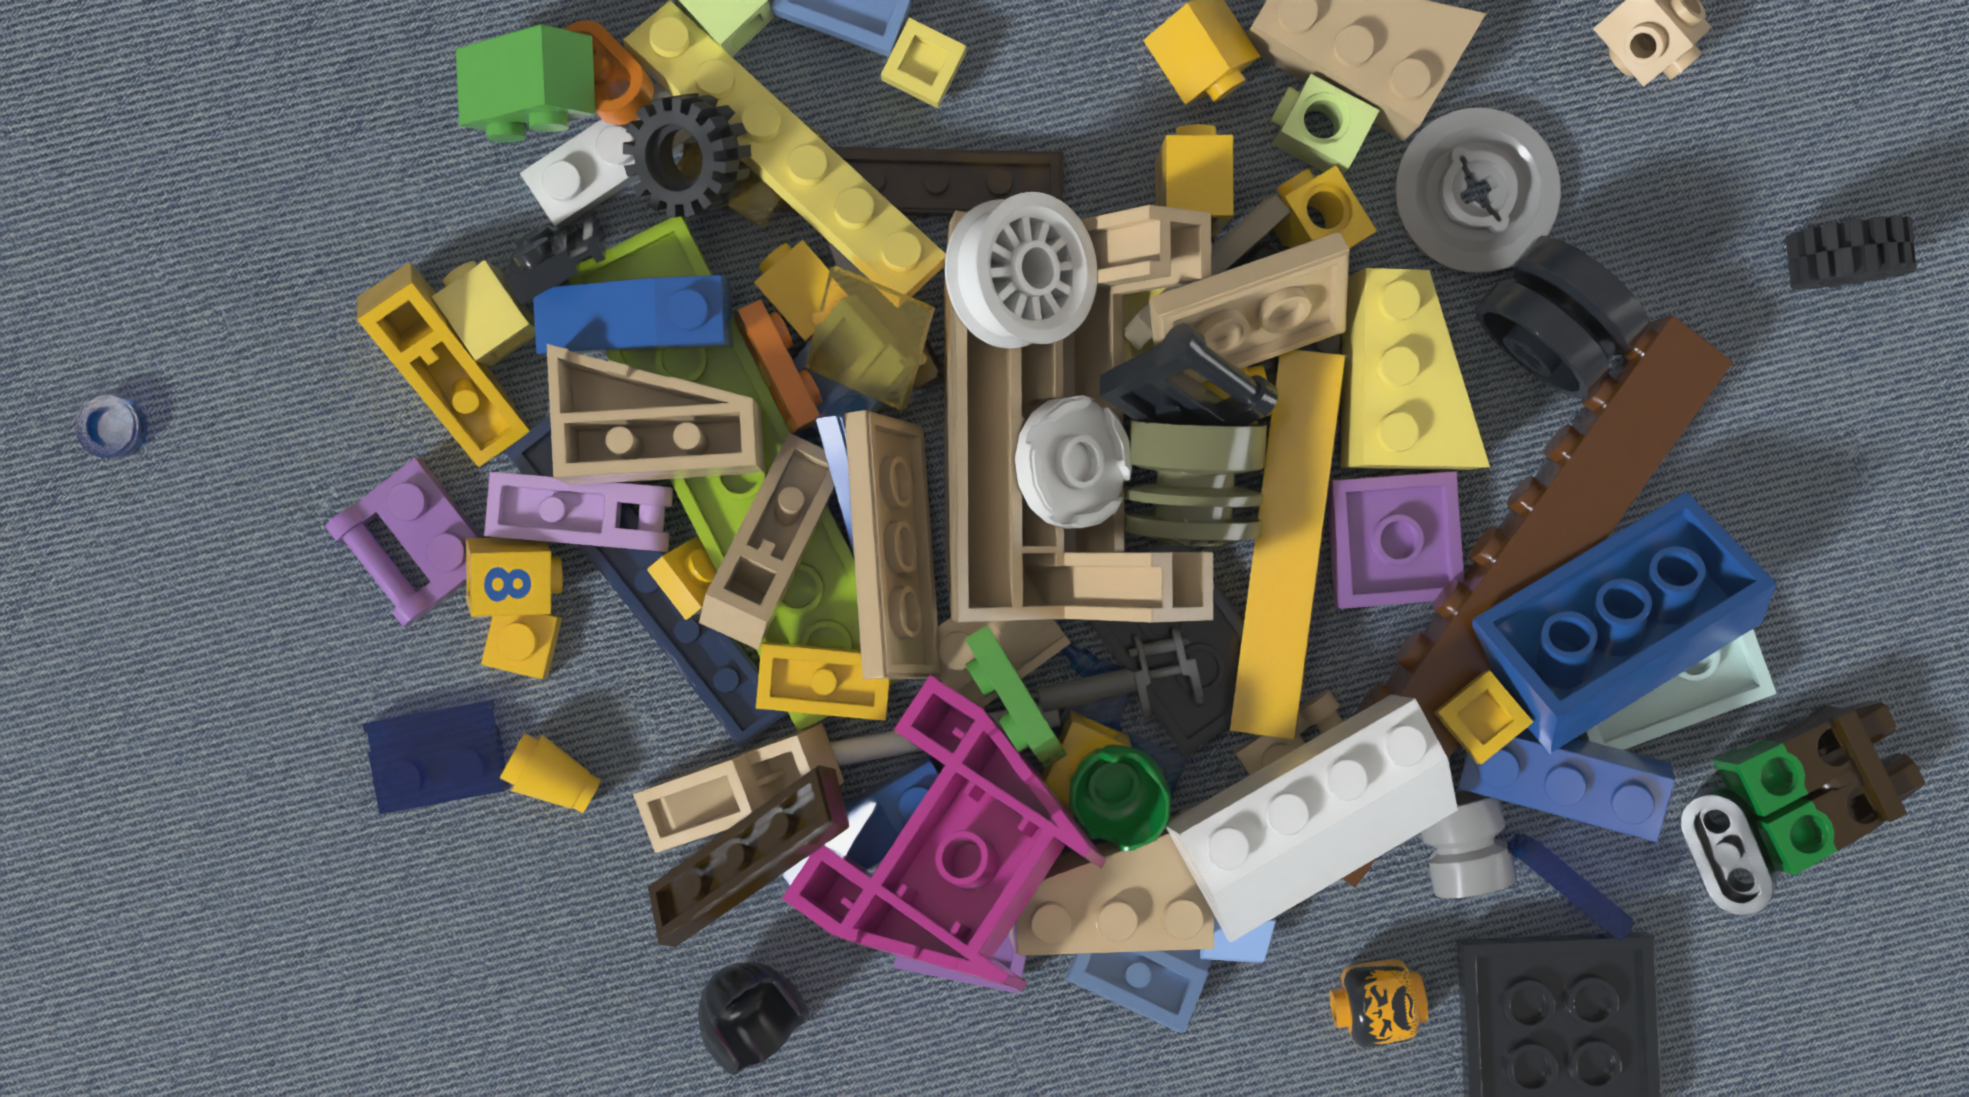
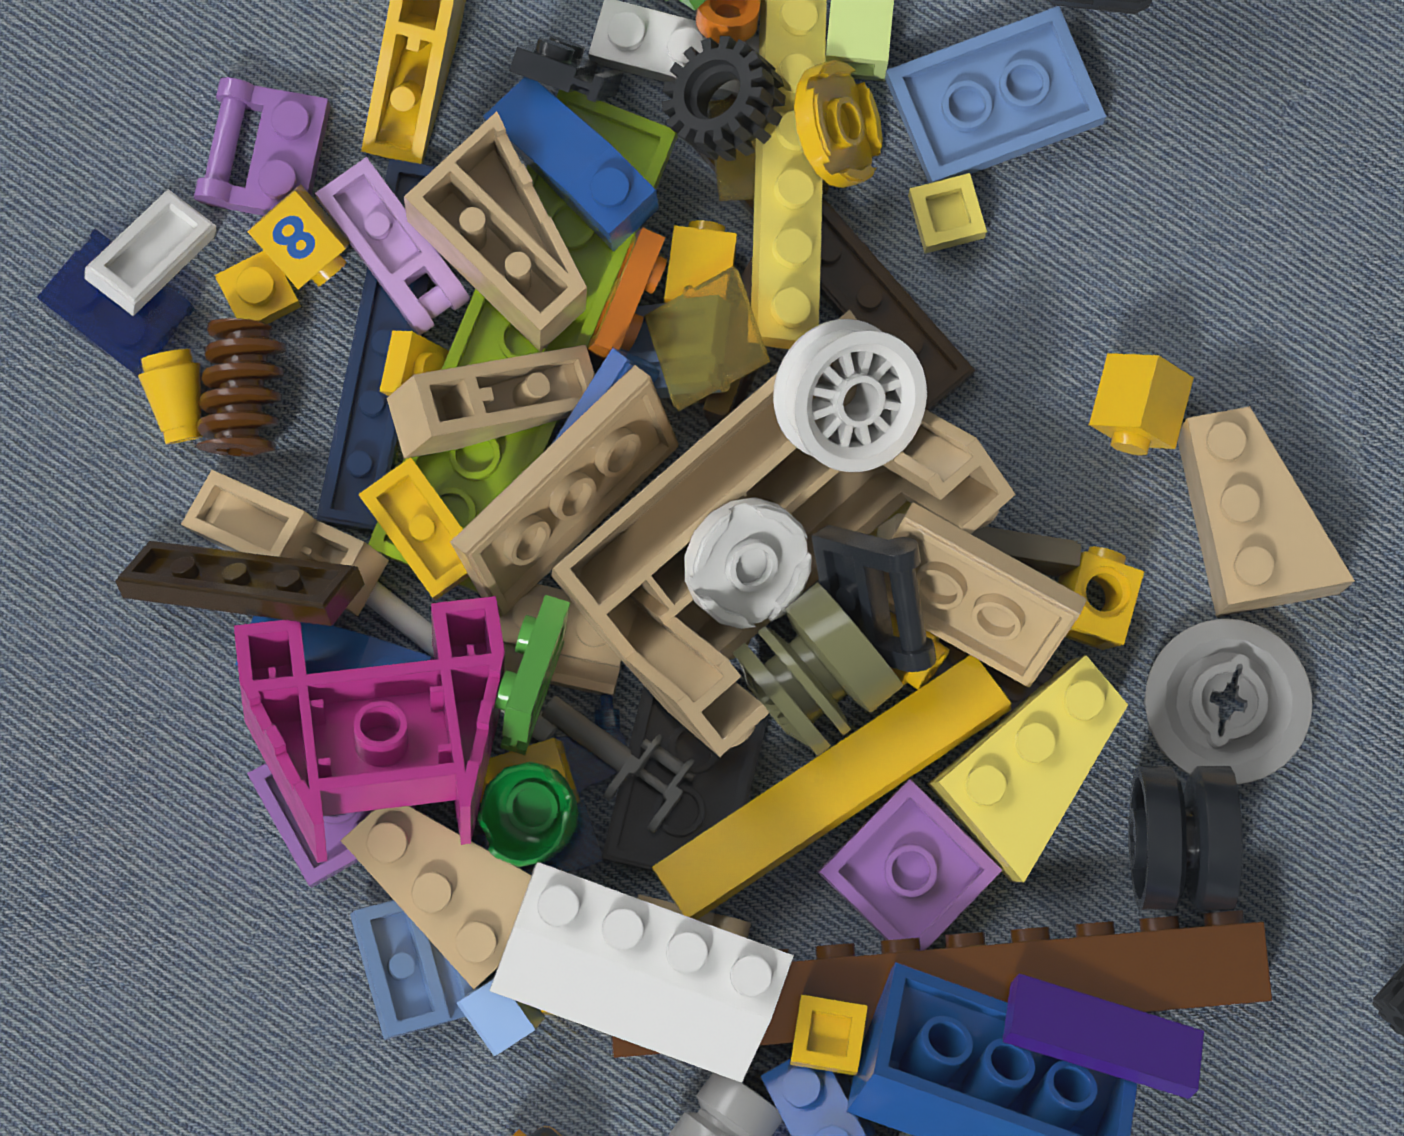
camera: 50 degrees right, 10 degrees down
(419, 698) = (150, 252): none -> white tile
(485, 311) = (480, 57): light yellow brick -> none
(589, 722) = (238, 388): none -> reddish brown piece
(748, 1014) = (118, 695): black hair -> none
(782, 84) = (837, 124): none -> yellow tile
(1196, 173) = (1042, 473): yellow brick -> none
(1349, 117) = (1161, 567): yellowish green brick -> none
(1659, 512) = (1103, 1036): none -> dark purple tile

